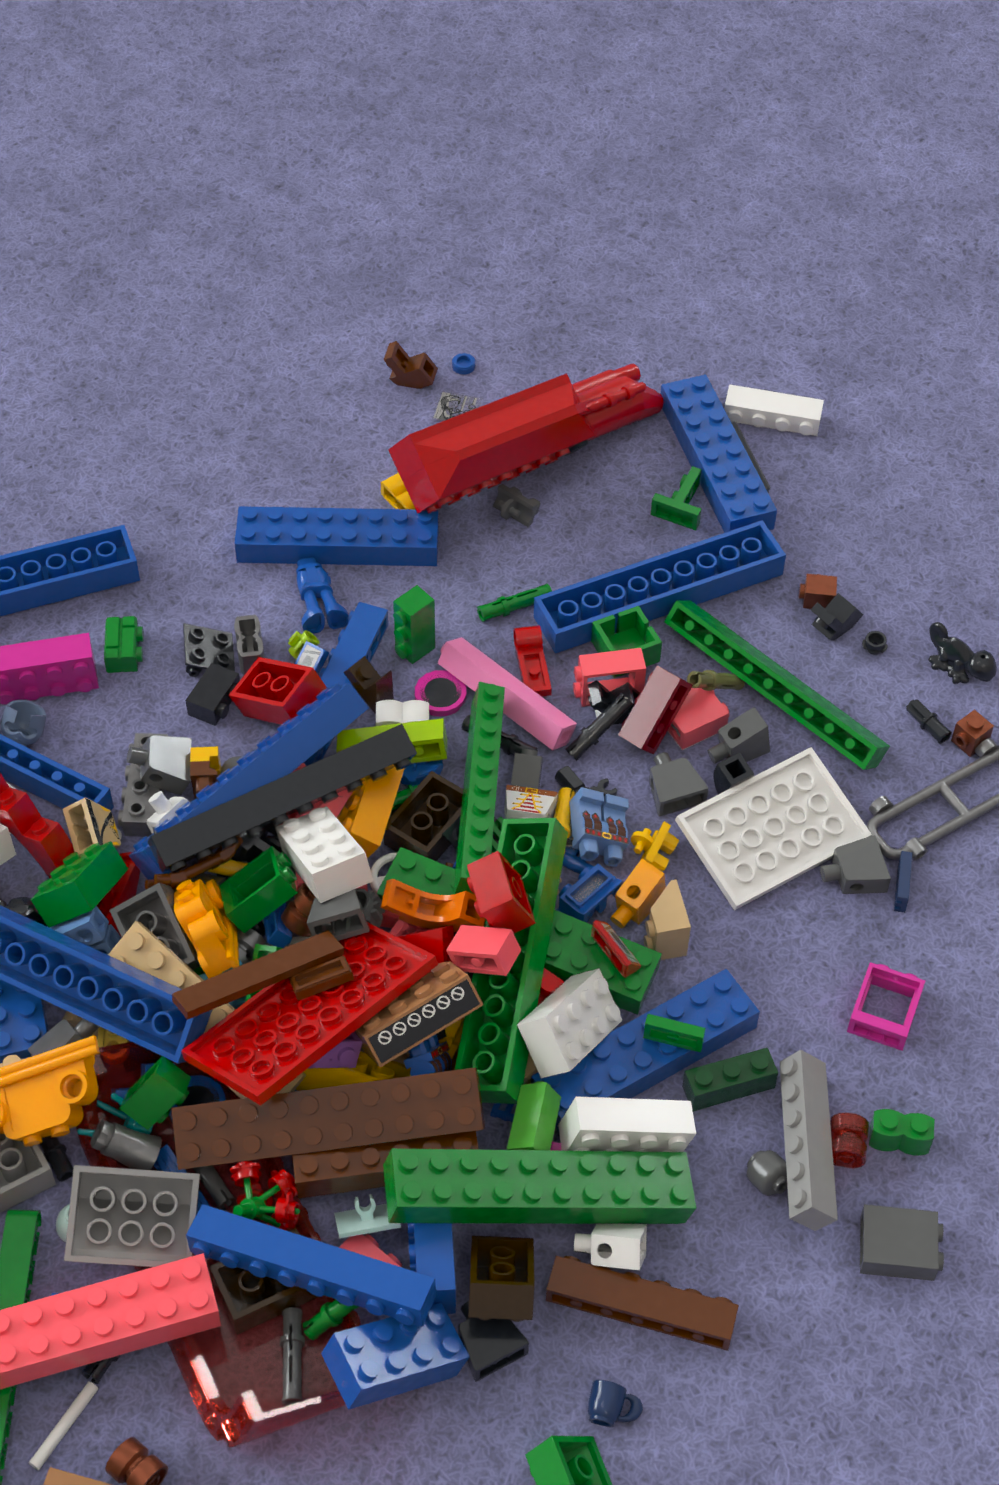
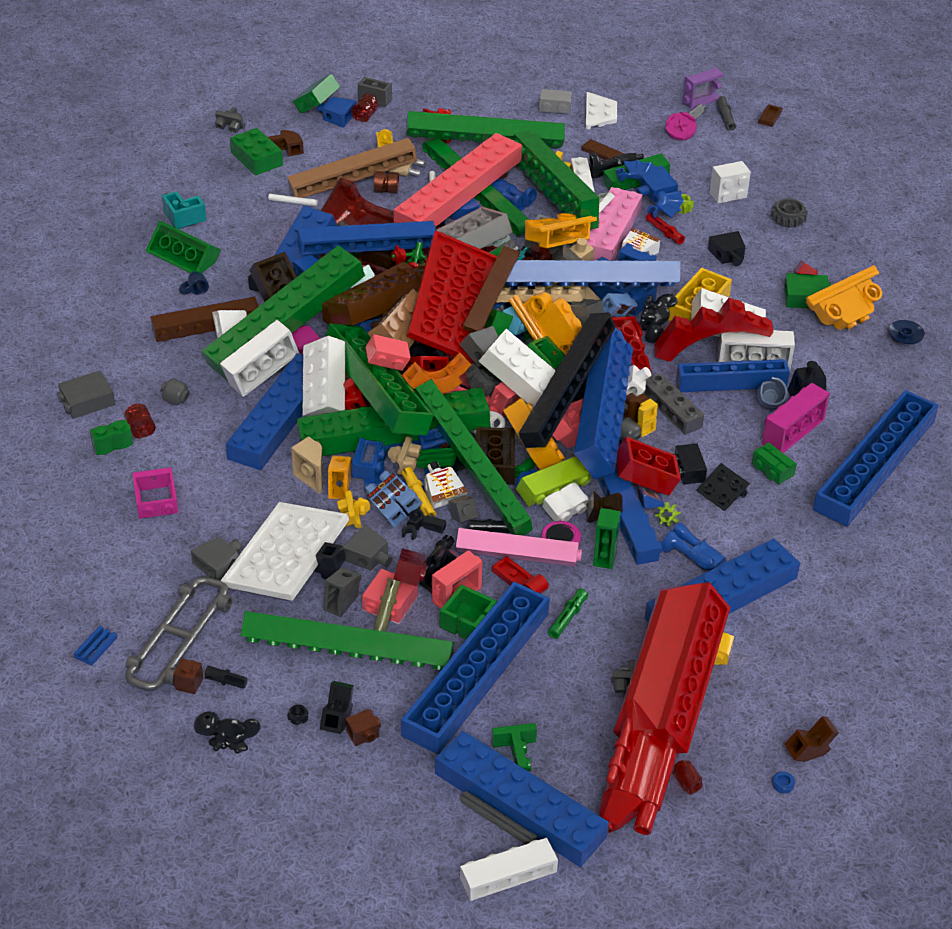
camera: 145 degrees right, 10 degrees down
(79, 883) = (637, 316): green brick -> none
(90, 824) = (666, 355): tan torso -> none
(164, 762) = (669, 398): torso -> none
(248, 641) = (698, 494): flat silver brick -> none
(321, 978) = (460, 307): reddish brown tile -> none
(453, 405) = (749, 742): piece -> none
(500, 893) = (396, 365): red brick -> none
(534, 1117) = (306, 331): bright green brick -> none
(614, 948) = (326, 418): red slope -> none
(674, 1033) = (263, 401): green tile -> none
(730, 1079) = (223, 418): dark green brick -> none
(808, 1141) = (162, 404): light grey brick -> none
(903, 881) = (183, 562): dark blue tile -> none

